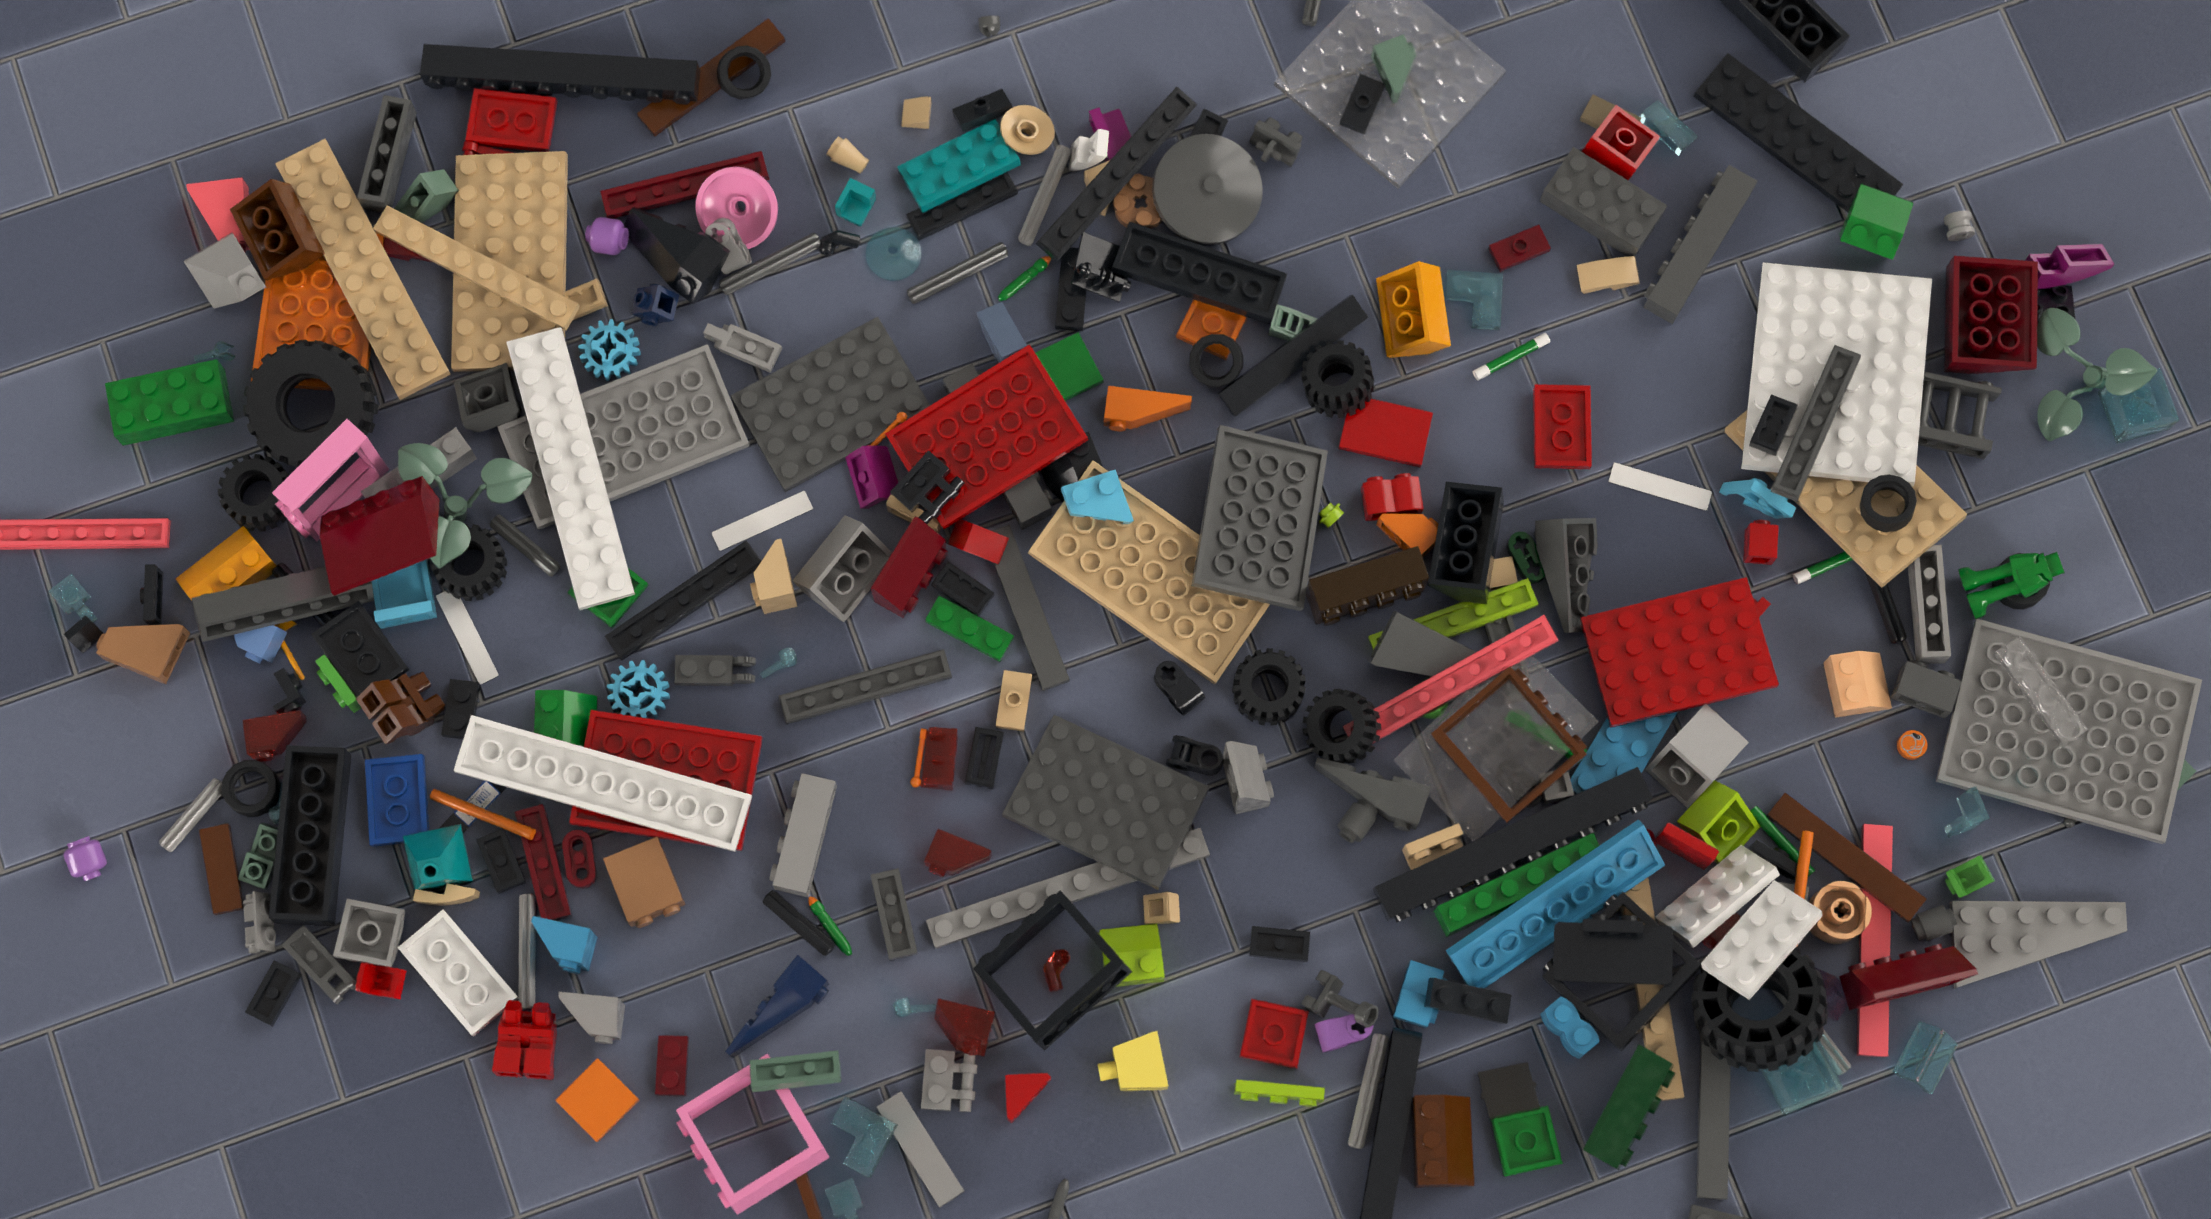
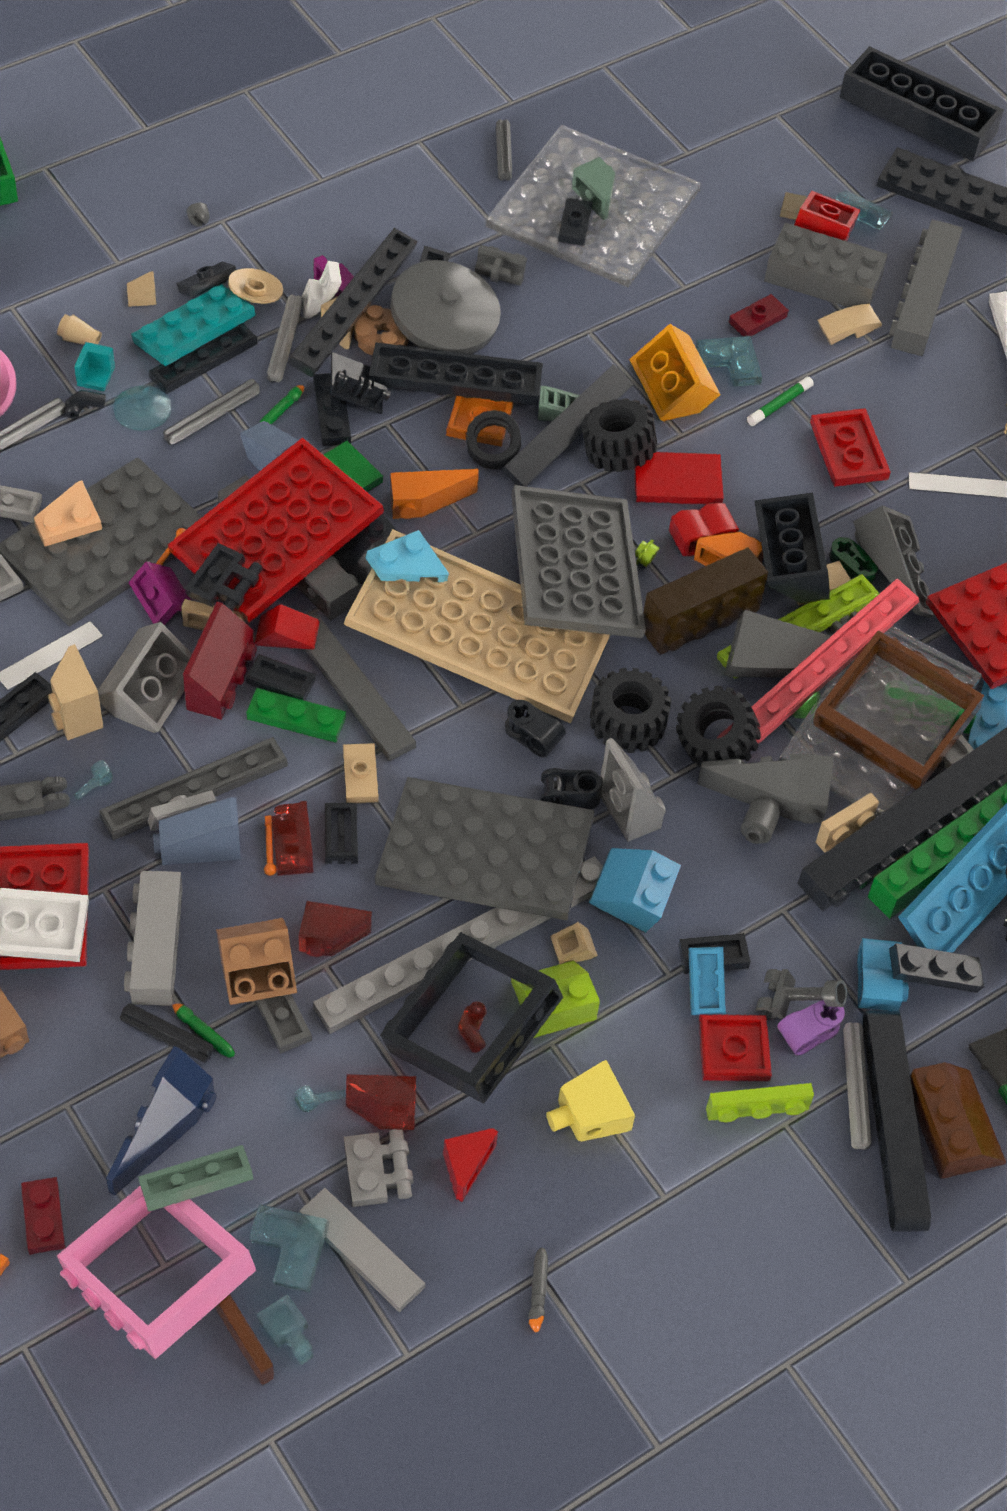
camera: 15 degrees left, 20 degrees down
(801, 379) = (68, 516): none -> light nougat wing
(848, 711) = (178, 805): none -> light grey plate
(859, 742) = (200, 834): none -> sand blue slope
(883, 878) = (256, 961): none -> medium nougat slope
(1225, 867) = (635, 886): none -> dark azure slope
(1264, 971) = (707, 981): none -> dark azure plate

